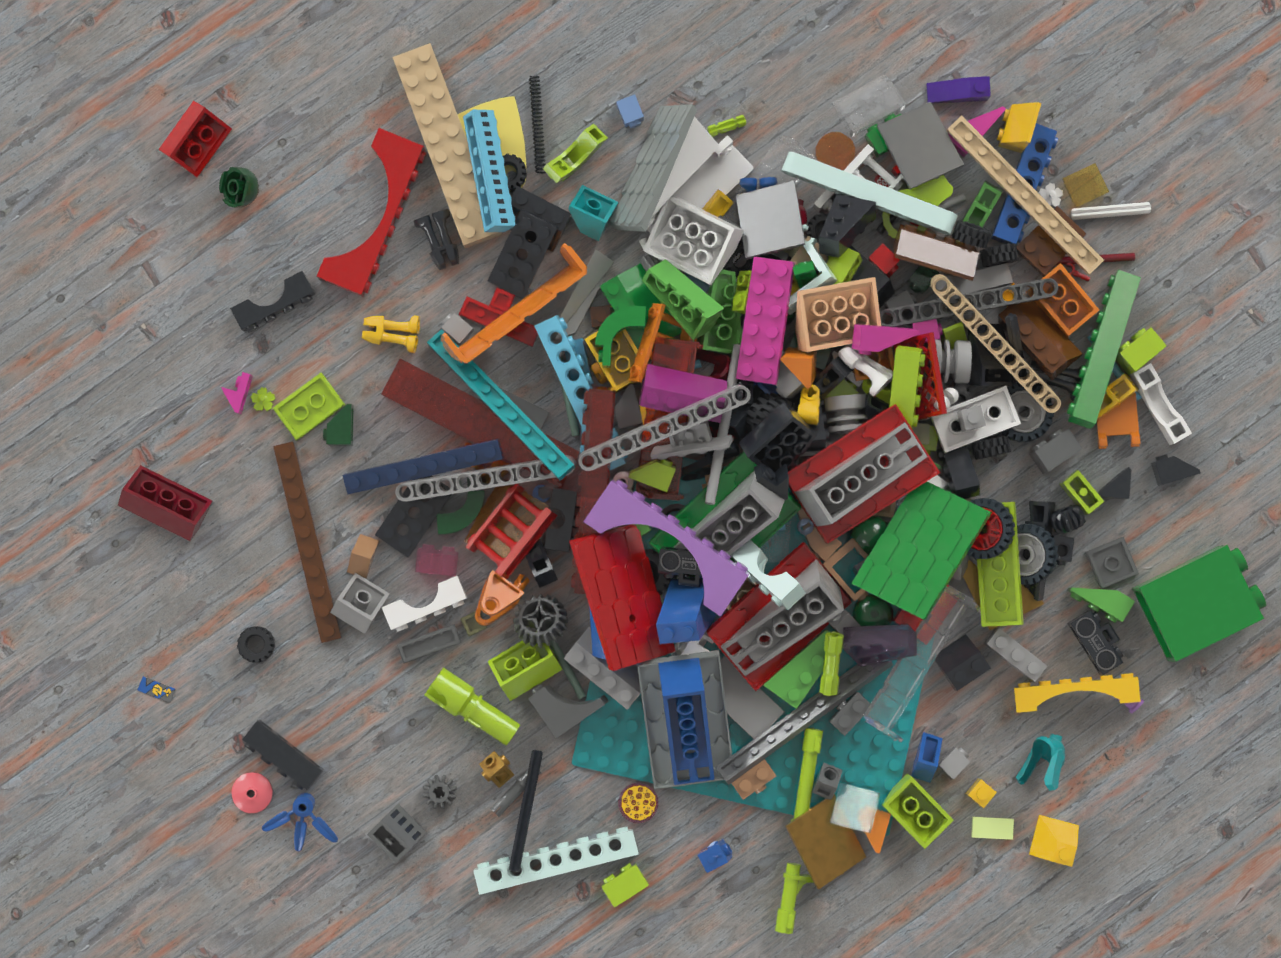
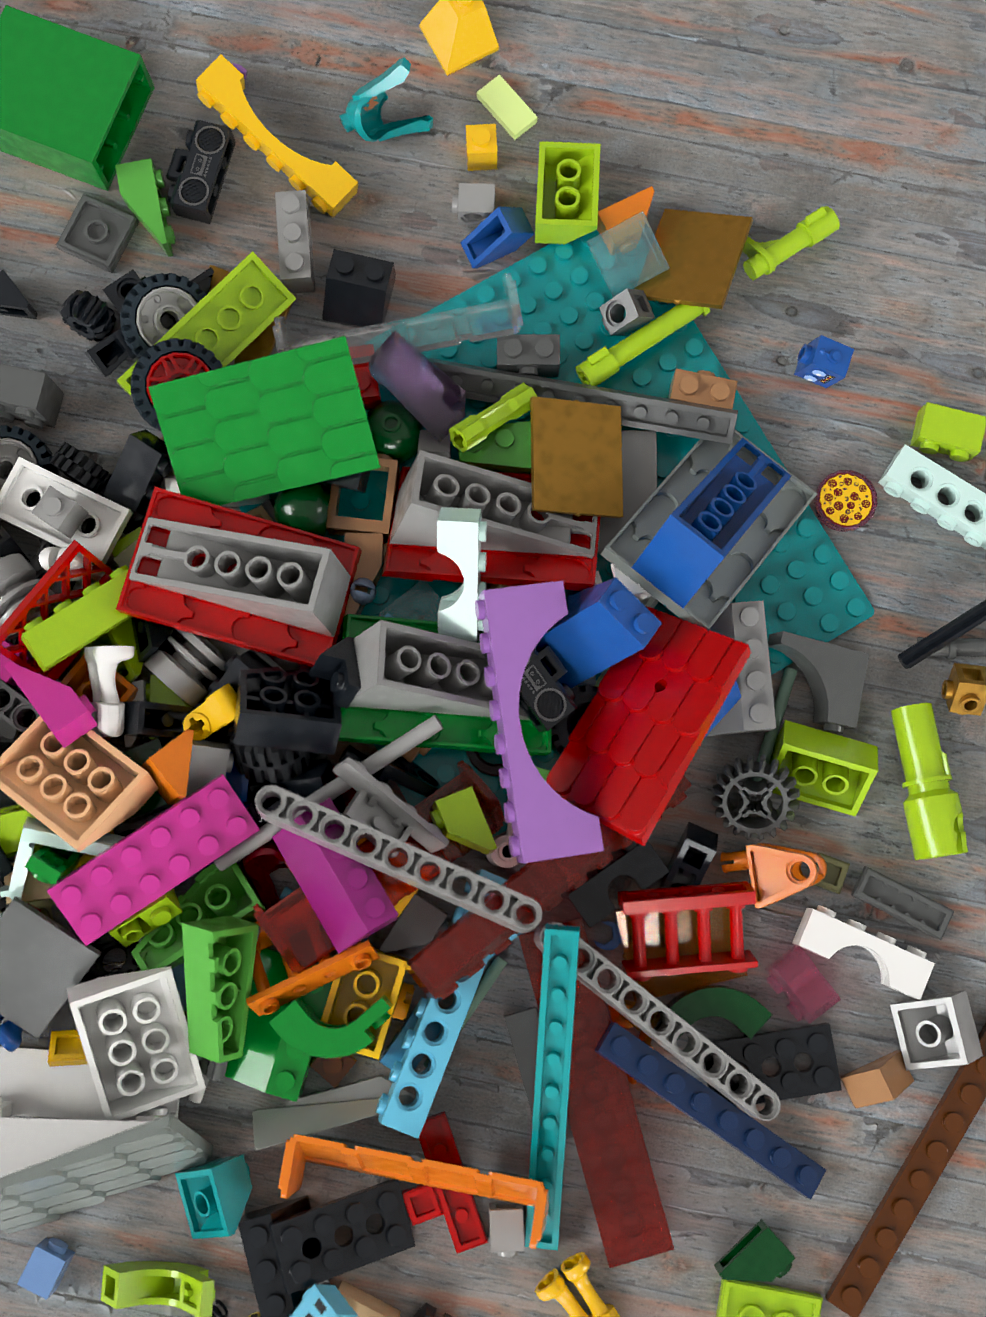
camera: 130 degrees left, 5 degrees down
(775, 684) = (576, 458): none -> pearl gold piece
(1081, 492) = (42, 328): lime brick -> none

